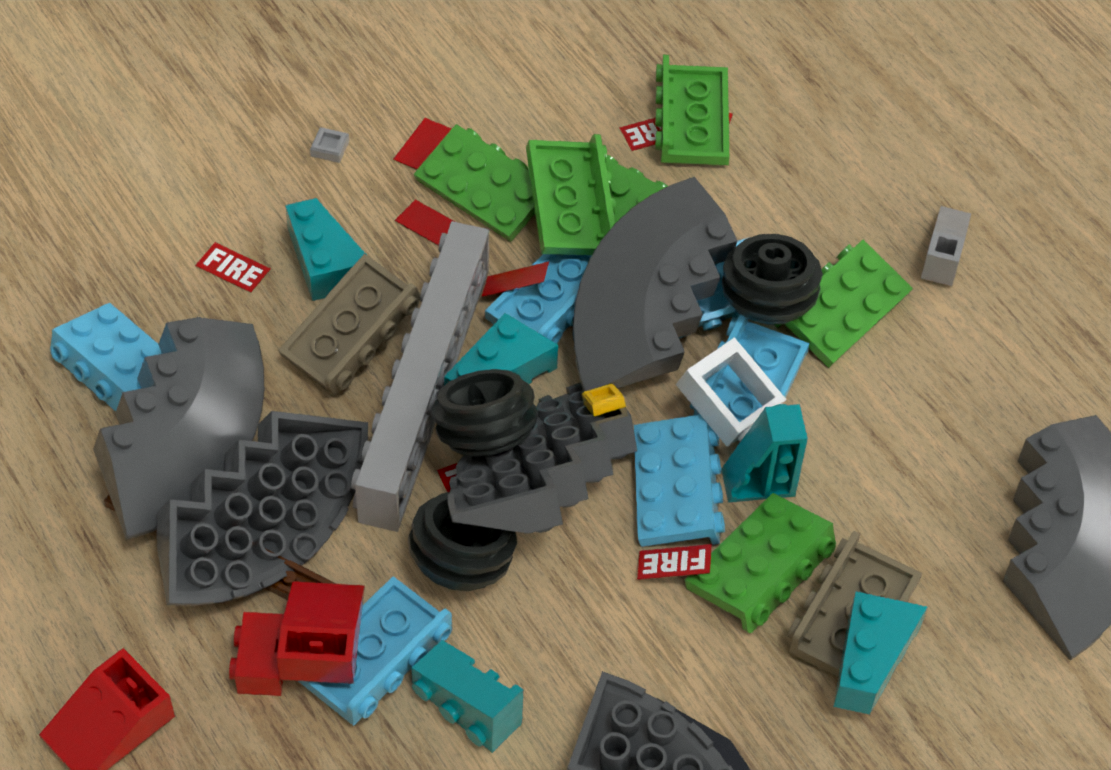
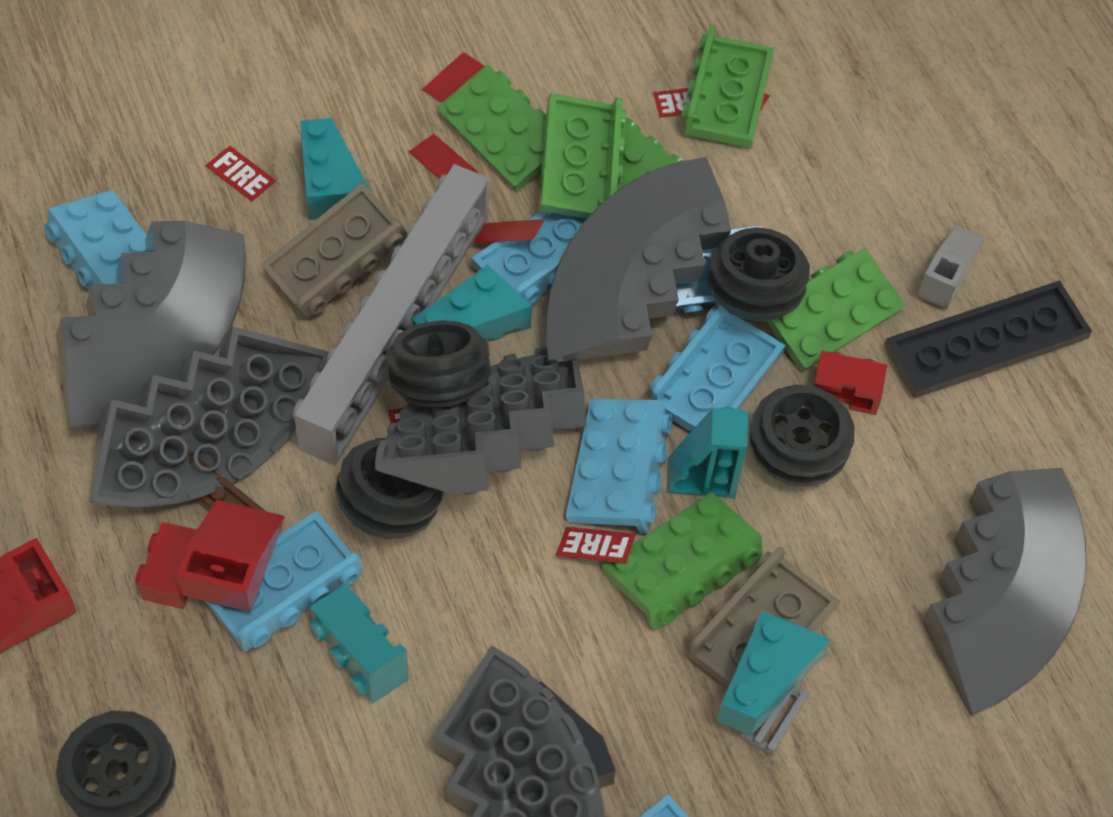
camera: 10 degrees right, 5 degrees up
(329, 145) = (363, 65): light grey tile -> none
(603, 399) = (562, 369): yellow tile -> none
(710, 406) = (653, 373): white window -> none
(854, 409) = (790, 450): none -> pearl dark grey wheel
(876, 718) = (758, 741): none -> light grey tile
(878, 367) = (851, 380): none -> red brick
(996, 307) = (987, 338): none -> black plate

